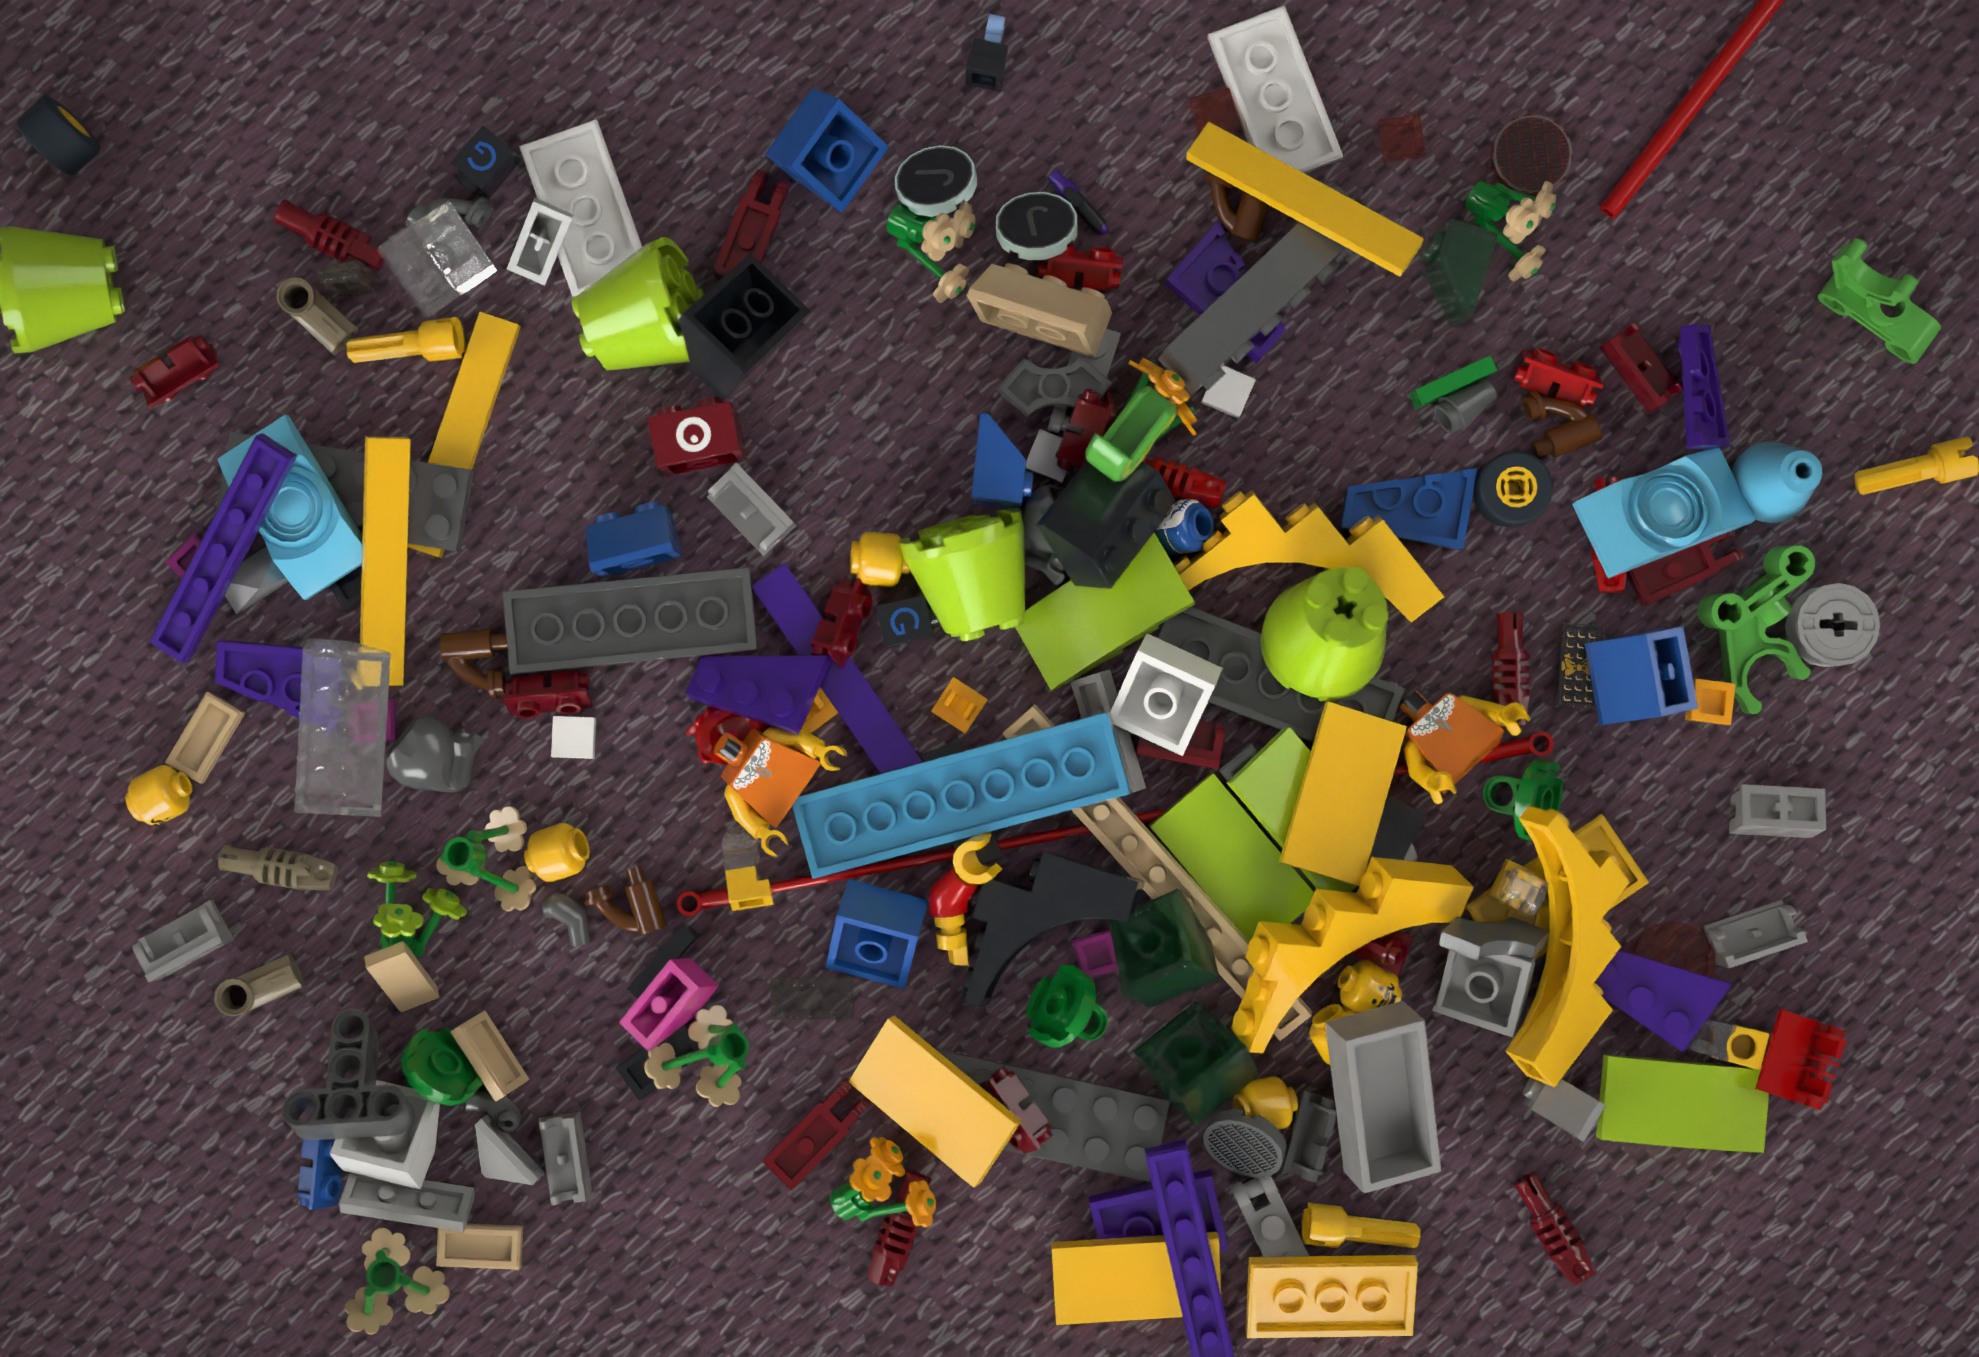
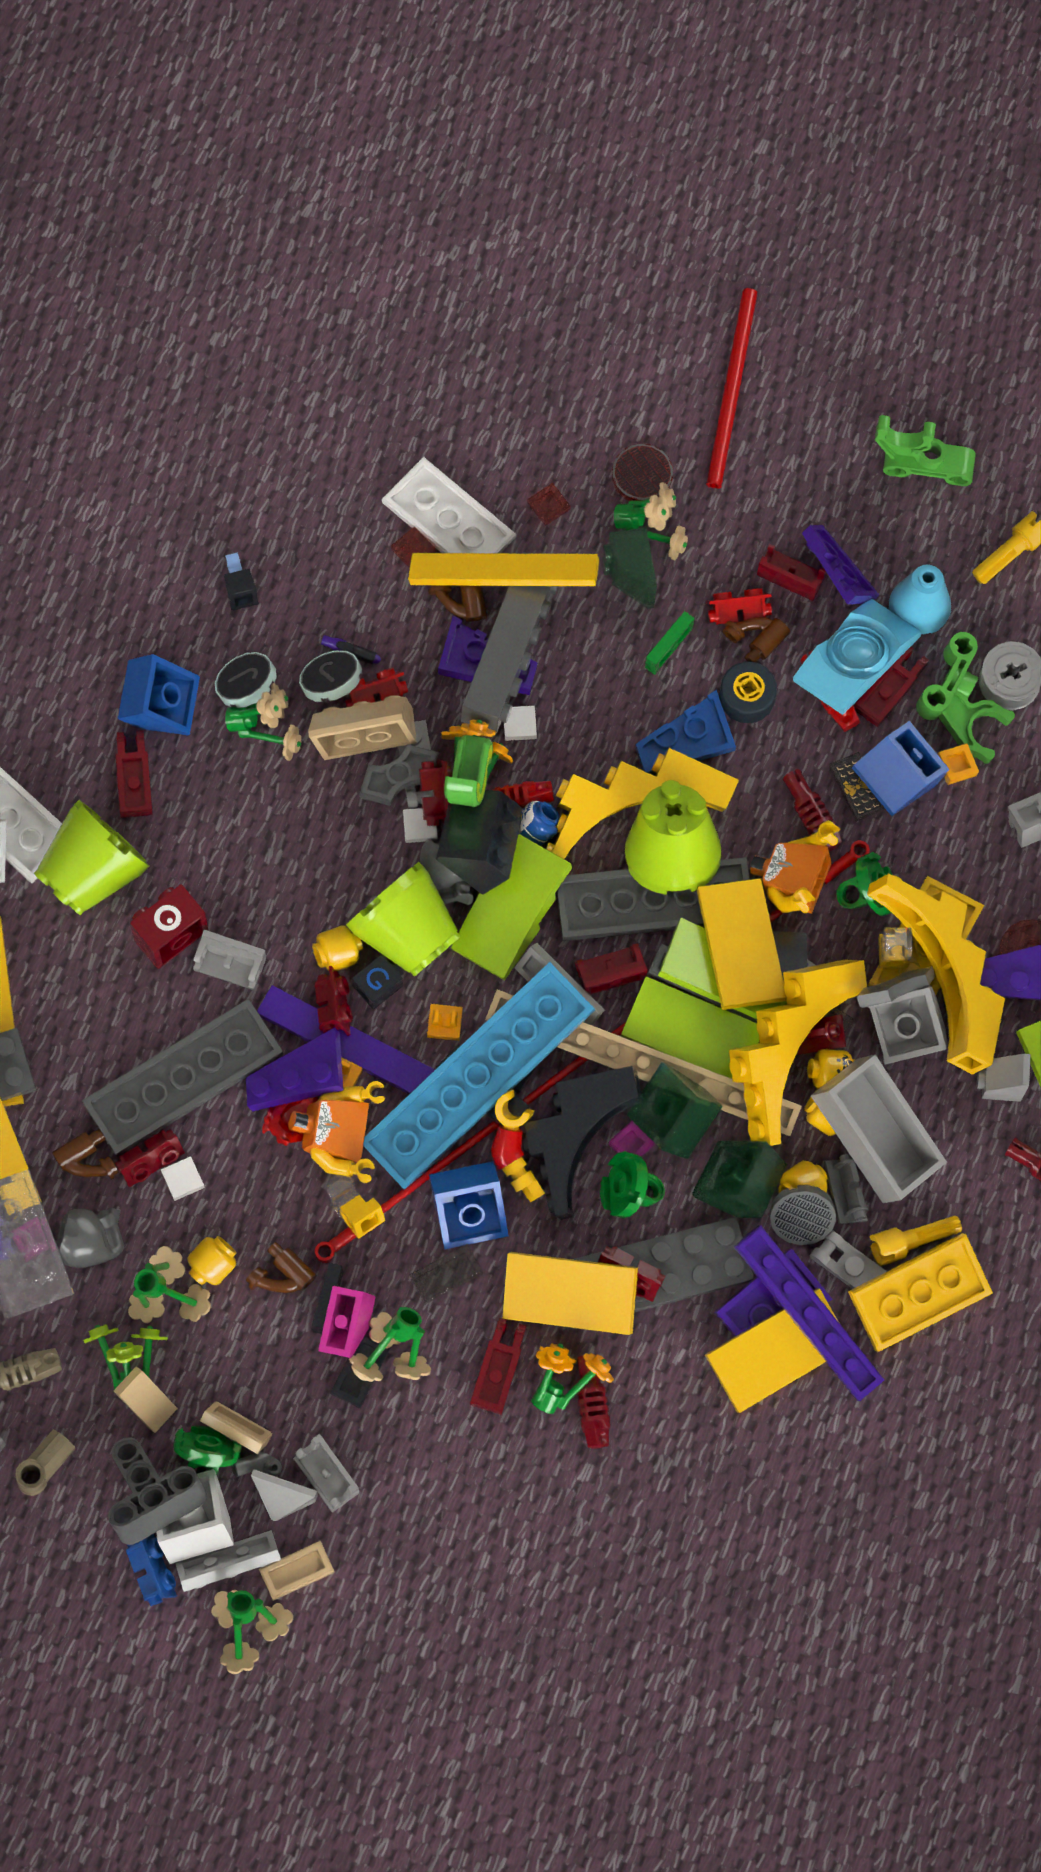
camera: 30 degrees left, 15 degrees down
(569, 913) = (245, 1301): dark grey arm -> none
(632, 540) = (158, 1019): blue slope -> none
(739, 325) = (161, 833): black slope -> none
(998, 469) = (389, 844): blue slope -> none
(1164, 694) = (583, 937): white slope -> none
(1463, 406) = (684, 656): dark grey cone -> none

